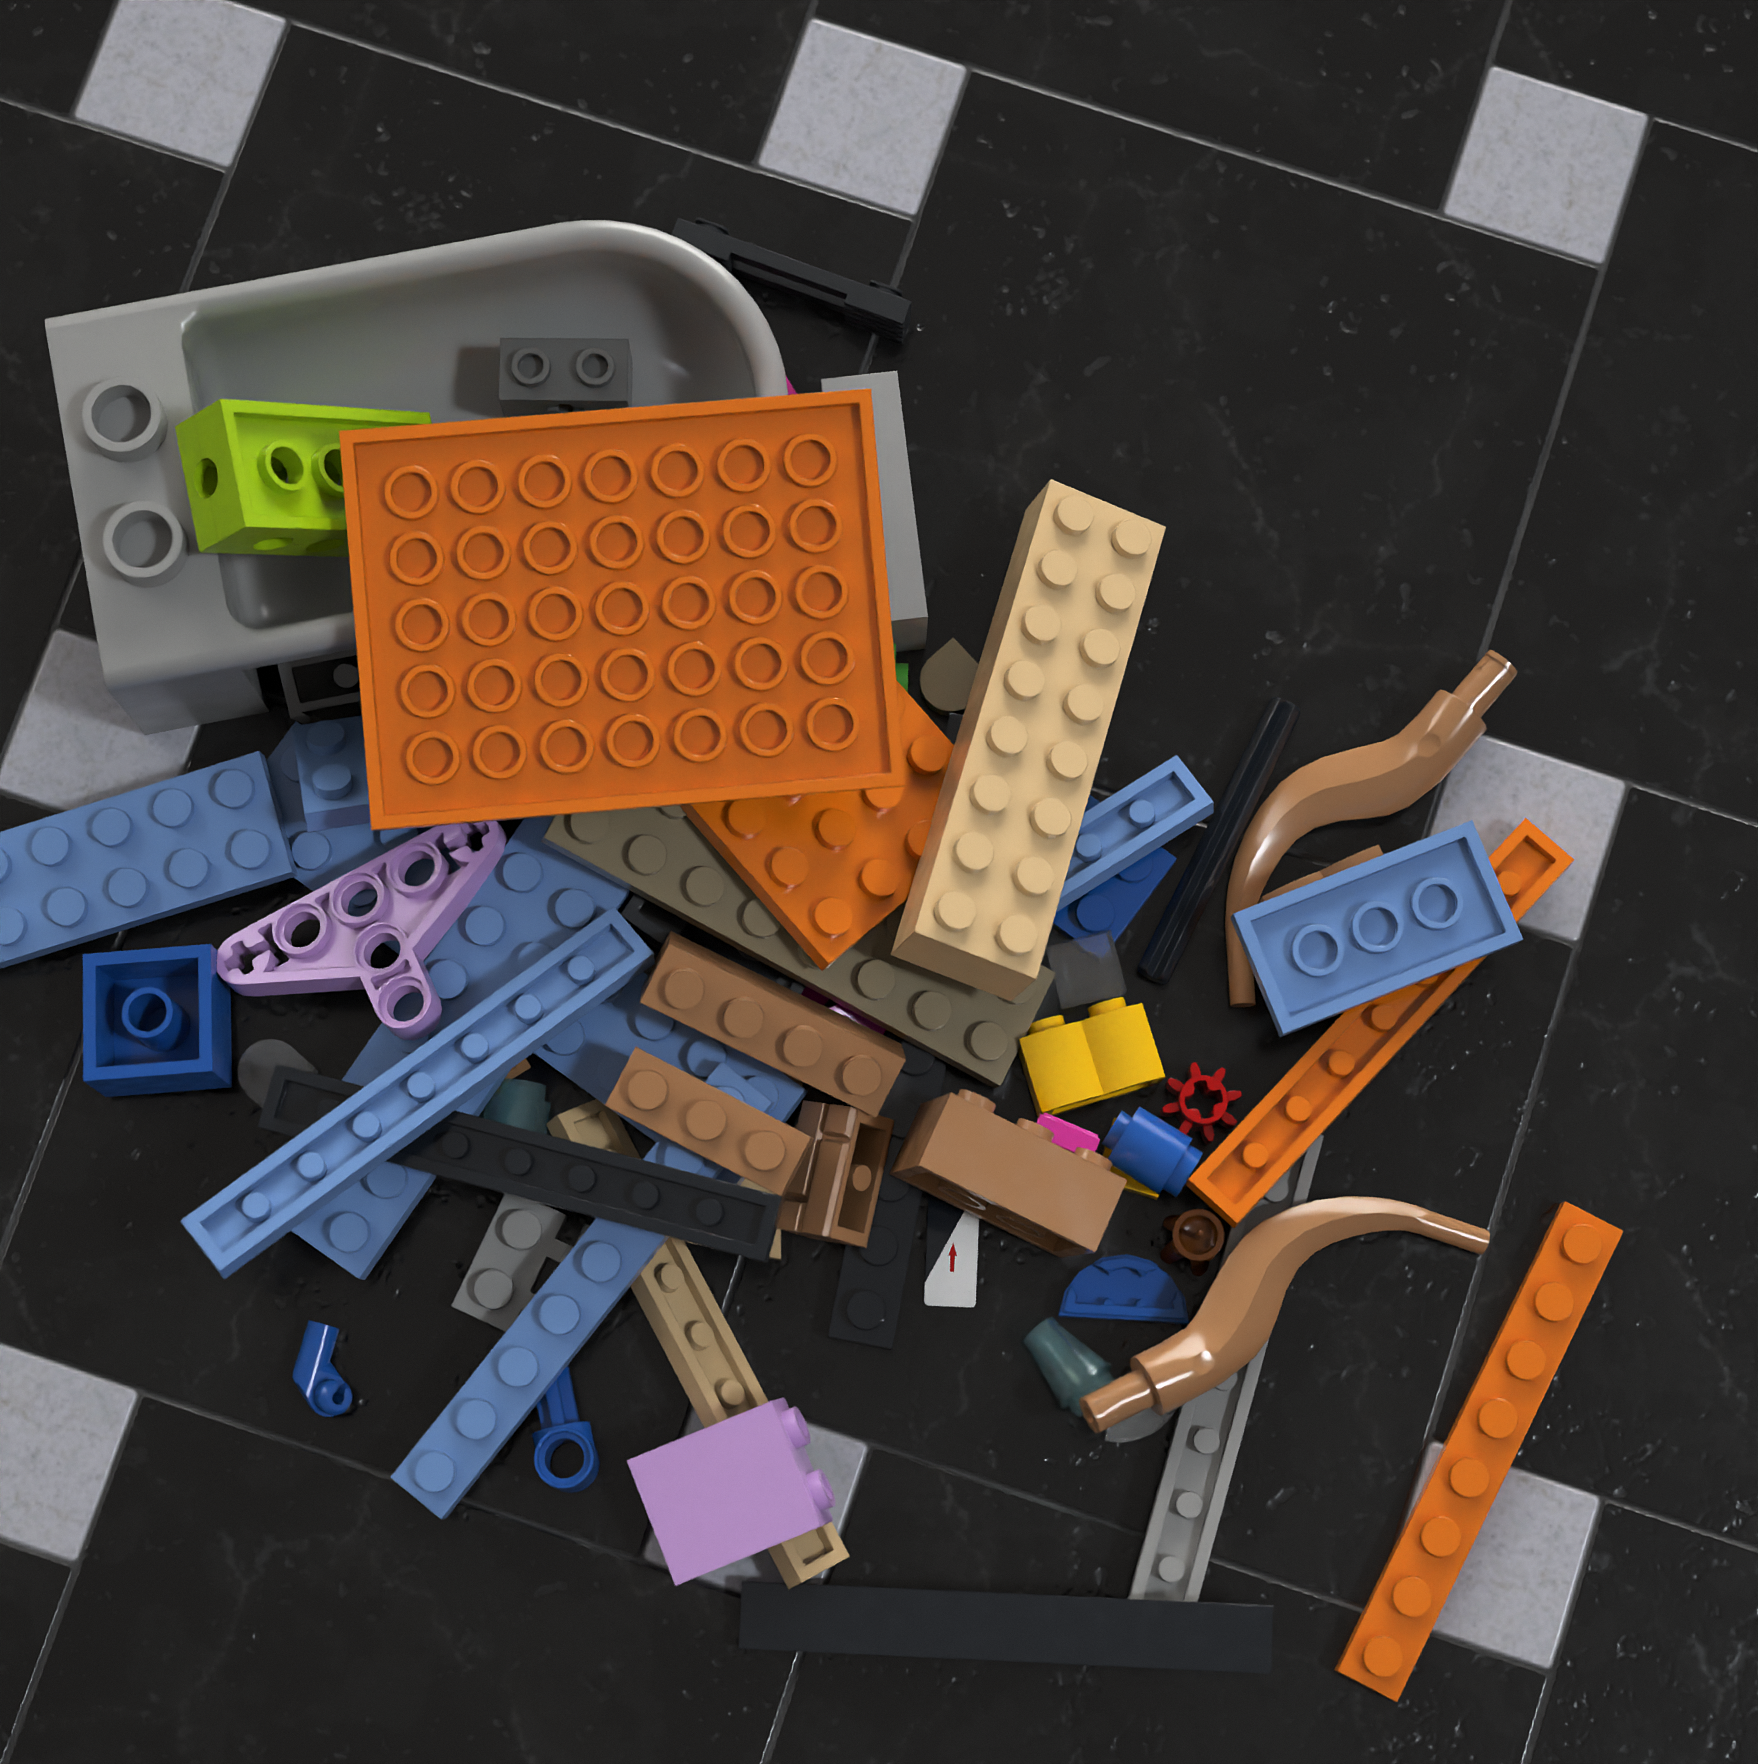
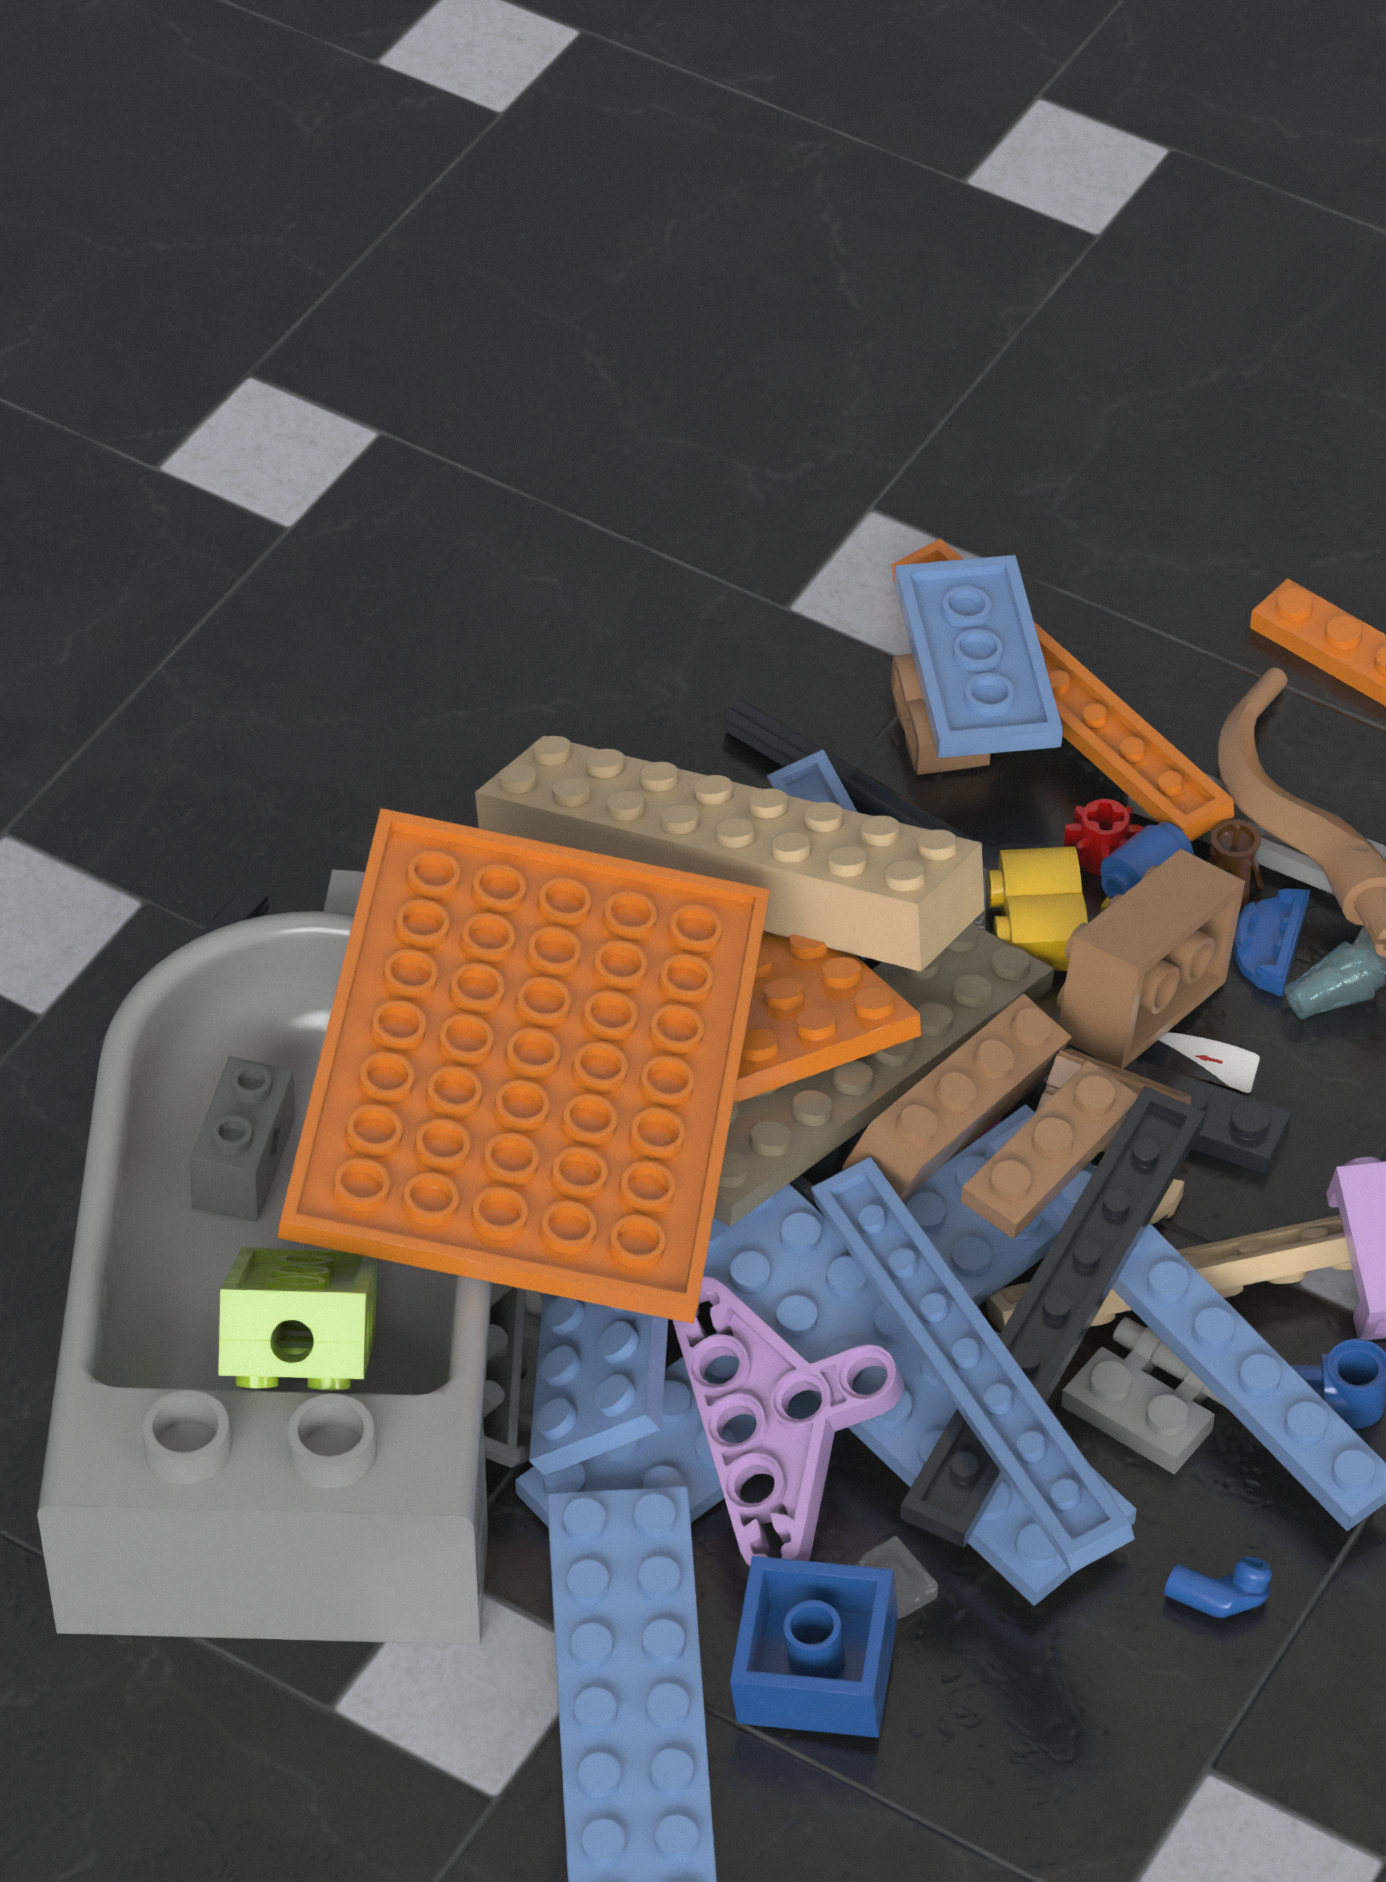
camera: 75 degrees left, 30 degrees down
(1357, 786) = (827, 679): medium nougat animal -> none

